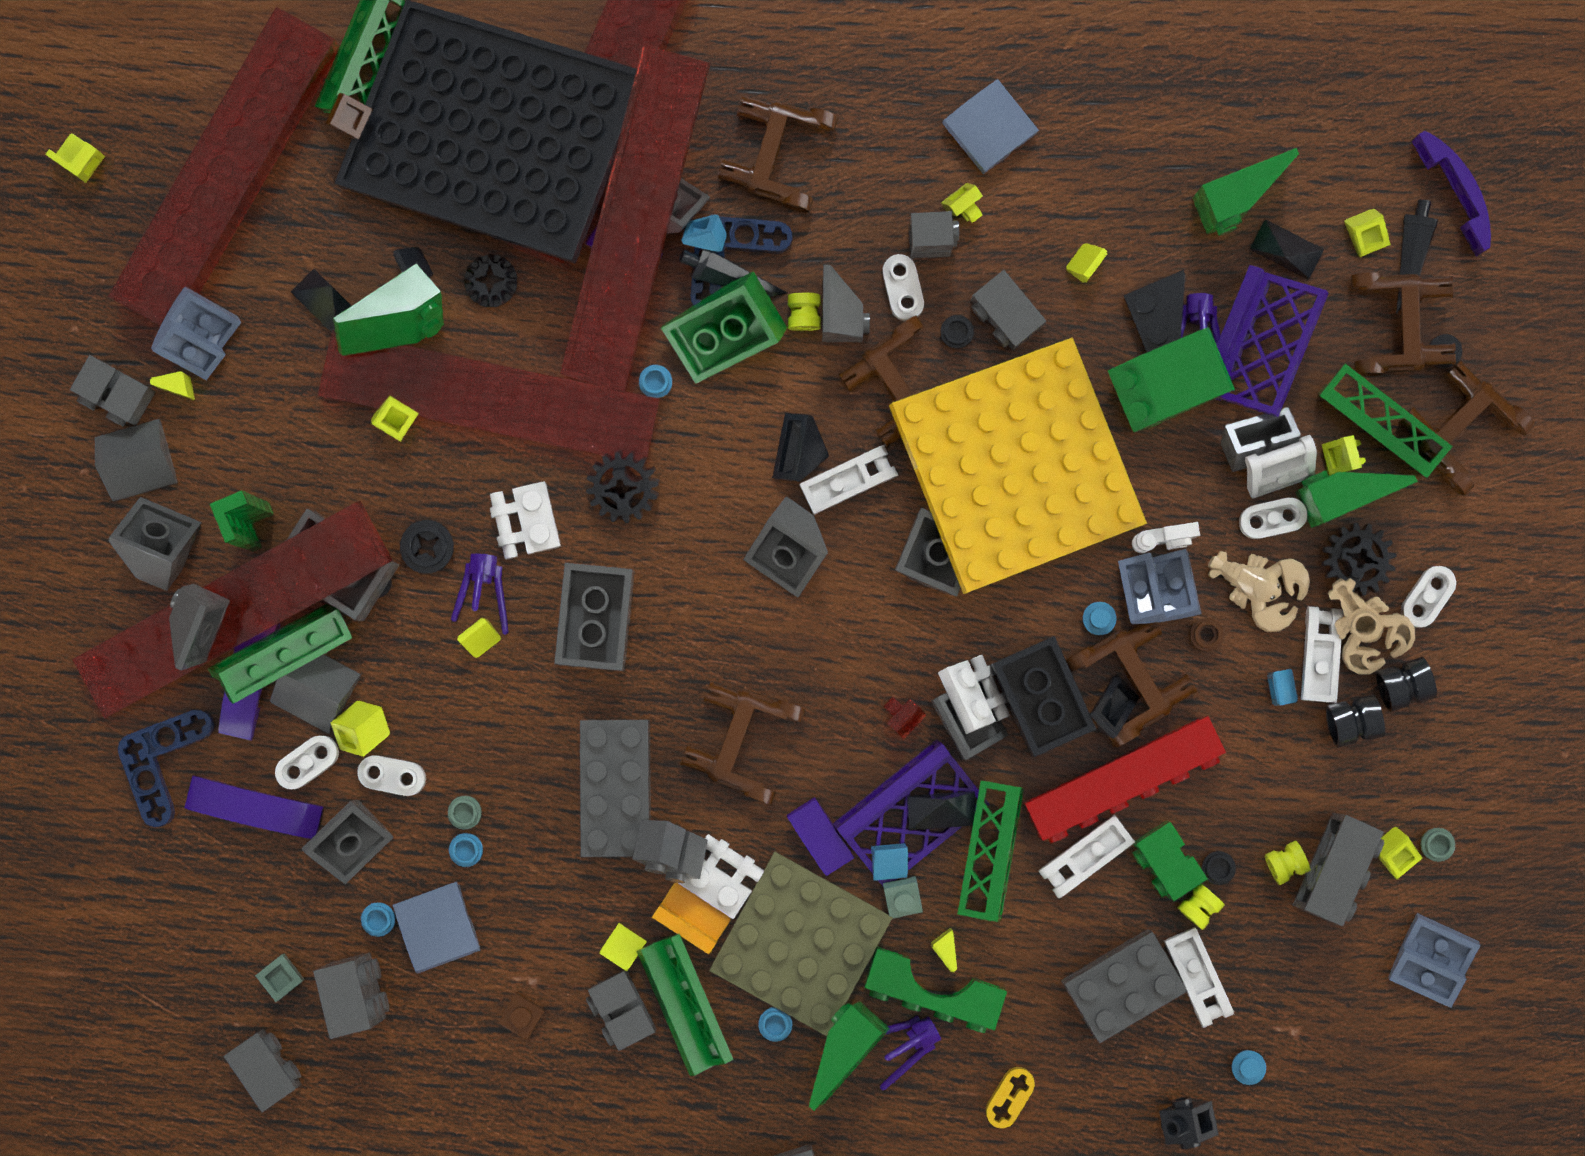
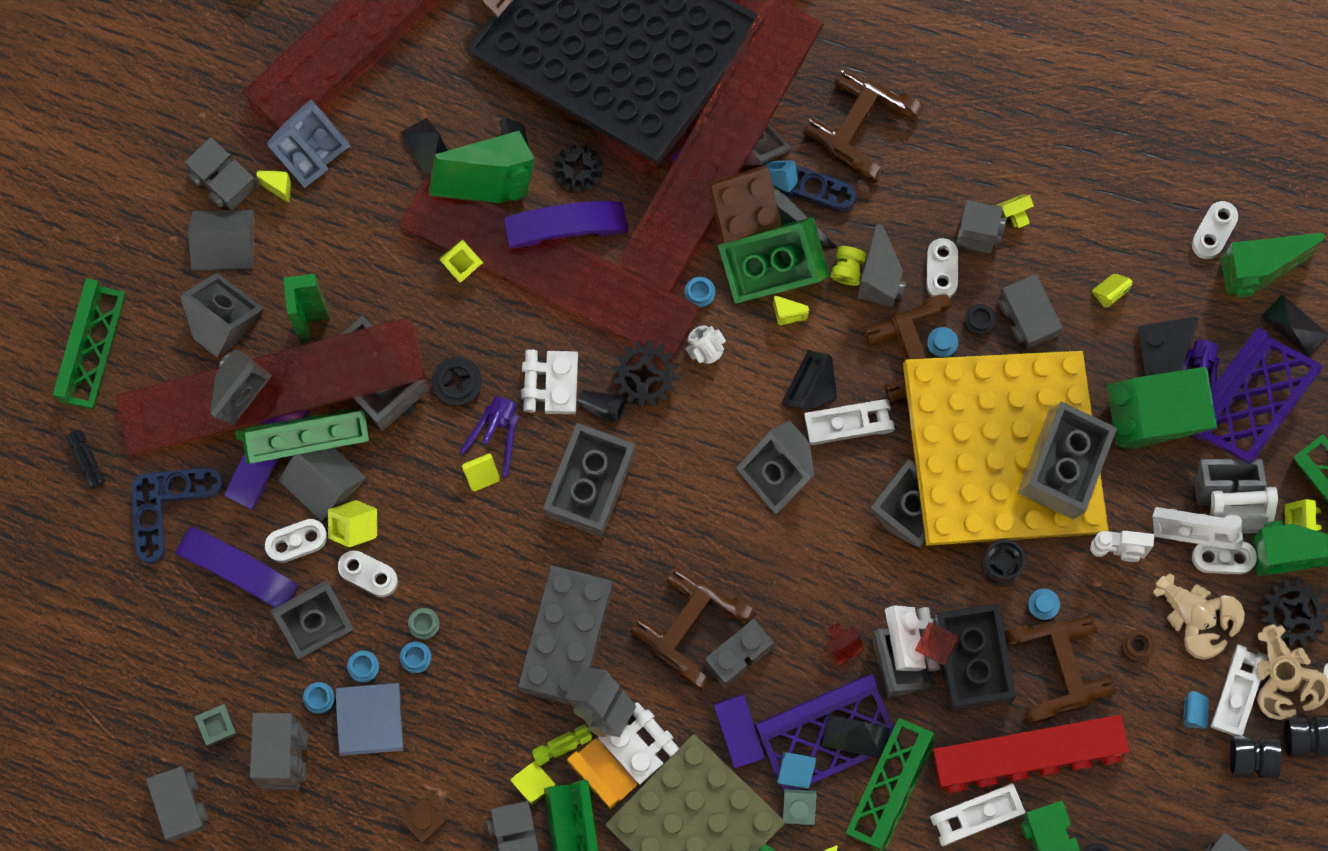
camera: 15 degrees right, 10 degrees down
(16, 612) = (78, 342): none -> green fence
(61, 734) = (85, 459): none -> black axle
(414, 874) = (363, 666): none -> dark azure plate
(493, 345) = (565, 221): none -> dark purple slope
(586, 531) = (603, 405): none -> black cone
(641, 900) = (562, 744): none -> lime axle
(676, 438) = (705, 344): none -> white gear
(677, 279) = (744, 204): none -> reddish brown plate
(754, 378) = (789, 311): none -> neon yellow slope
(791, 766) = (728, 660): none -> dark grey piece
(924, 367) = (942, 342): none -> dark azure plate
(990, 126) = (1055, 150): sand blue slope -> none
(1001, 698) = (937, 643): none -> clear red plate
(1047, 588) = (1003, 563): none -> black wheel
(1087, 466) = (1067, 460): none -> dark grey brick
(1114, 707) = (1036, 685): black slope -> none
(1159, 587) = (1105, 590): sand blue slope -> none
(1178, 167) = (1216, 229): none -> white plate
(1240, 497) = (1198, 528): none -> white plate

